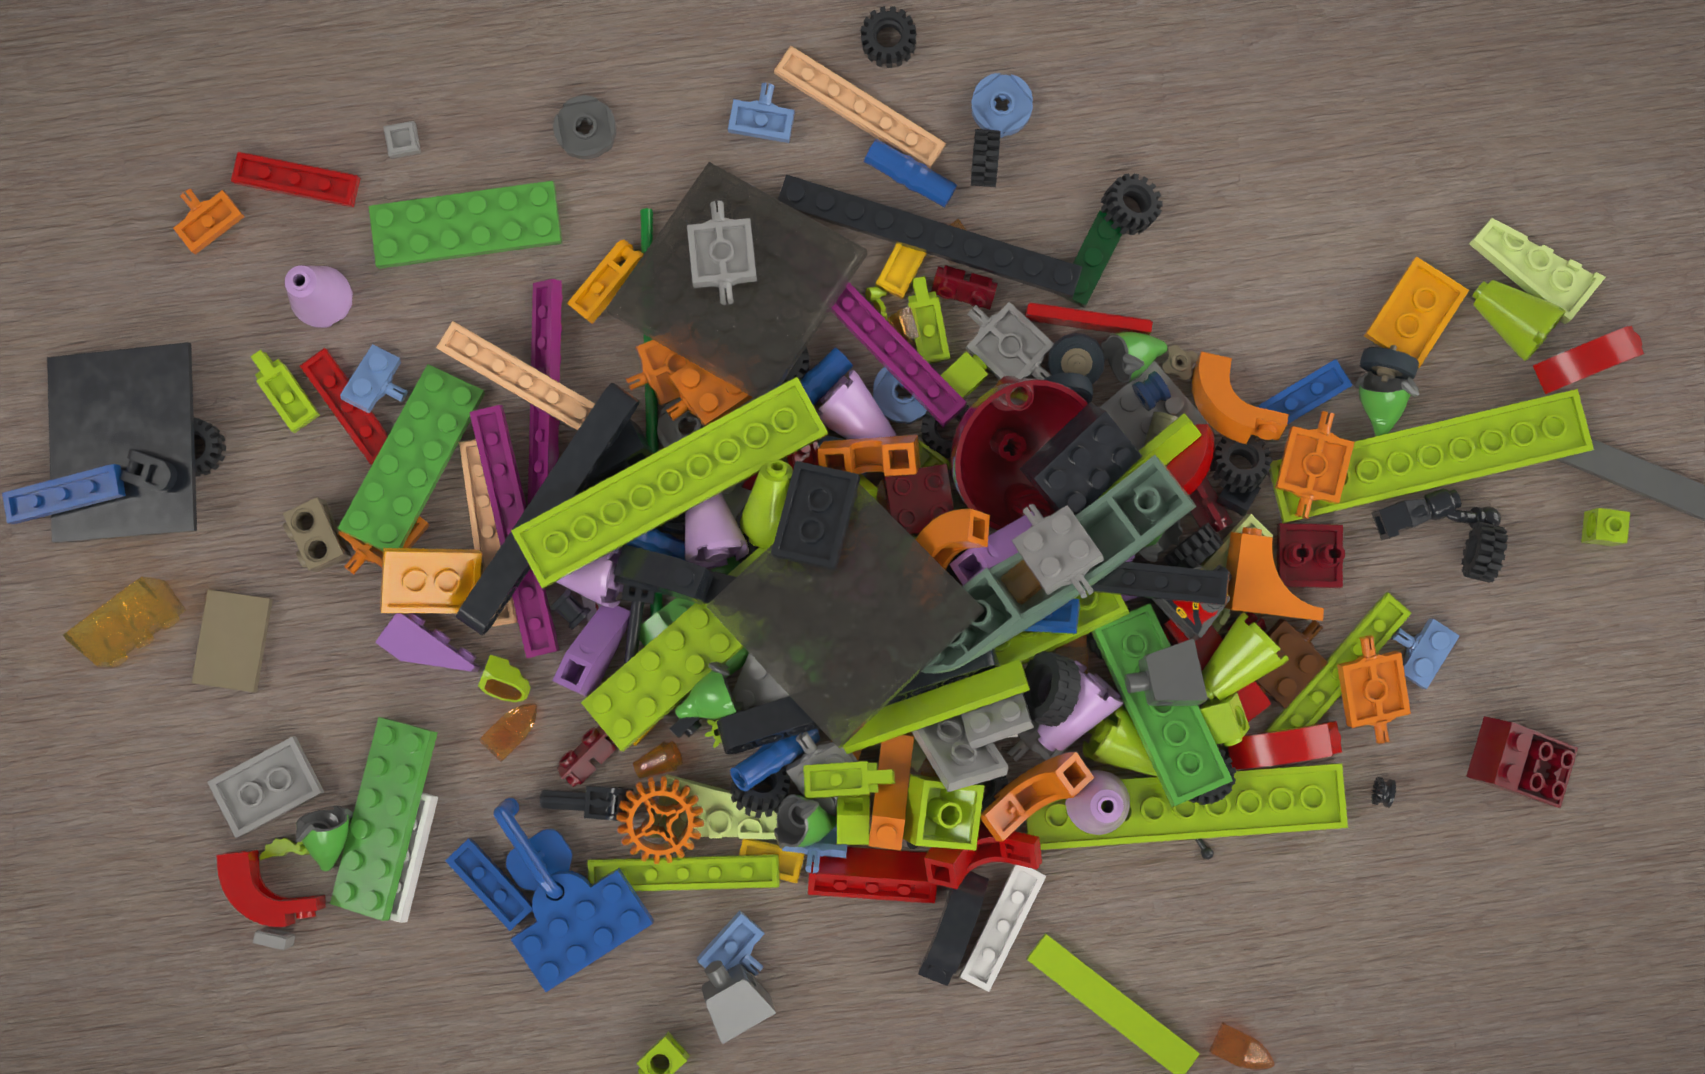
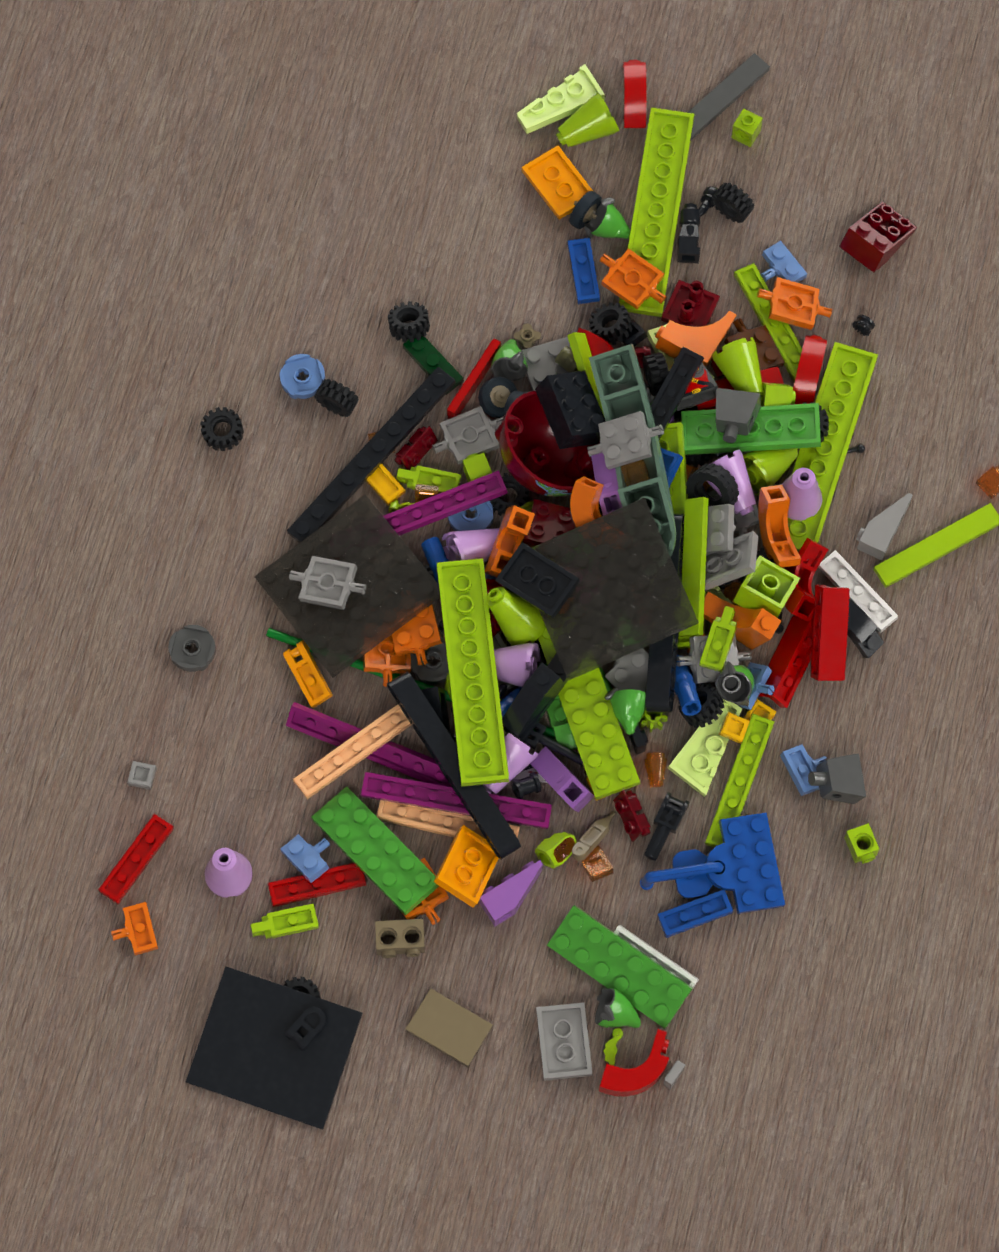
camera: 70 degrees left, 15 degrees down
(63, 494) = (293, 1100): blue plate -> none
(126, 622) = (407, 1088): clear yellow slope -> none
(465, 224) = (222, 755): bright green plate -> none
(537, 717) = (592, 838): none -> dark tan piece
(648, 828) = (681, 780): orange gear -> none
(749, 839) = (734, 727): none -> yellow tile
(761, 118) = (240, 530): medium blue plate -> none
(853, 820) = (748, 651): lime brick -> none
(858, 107) = (261, 467): light nougat tile -> none
(909, 172) = (322, 451): blue axle -> none
(918, 916) = (830, 633): none -> red panel
(1094, 925) = (882, 528): none -> light grey slope
(1151, 391) = (540, 356): dark blue wheel -> none
(1225, 409) = (567, 319): orange arch -> none

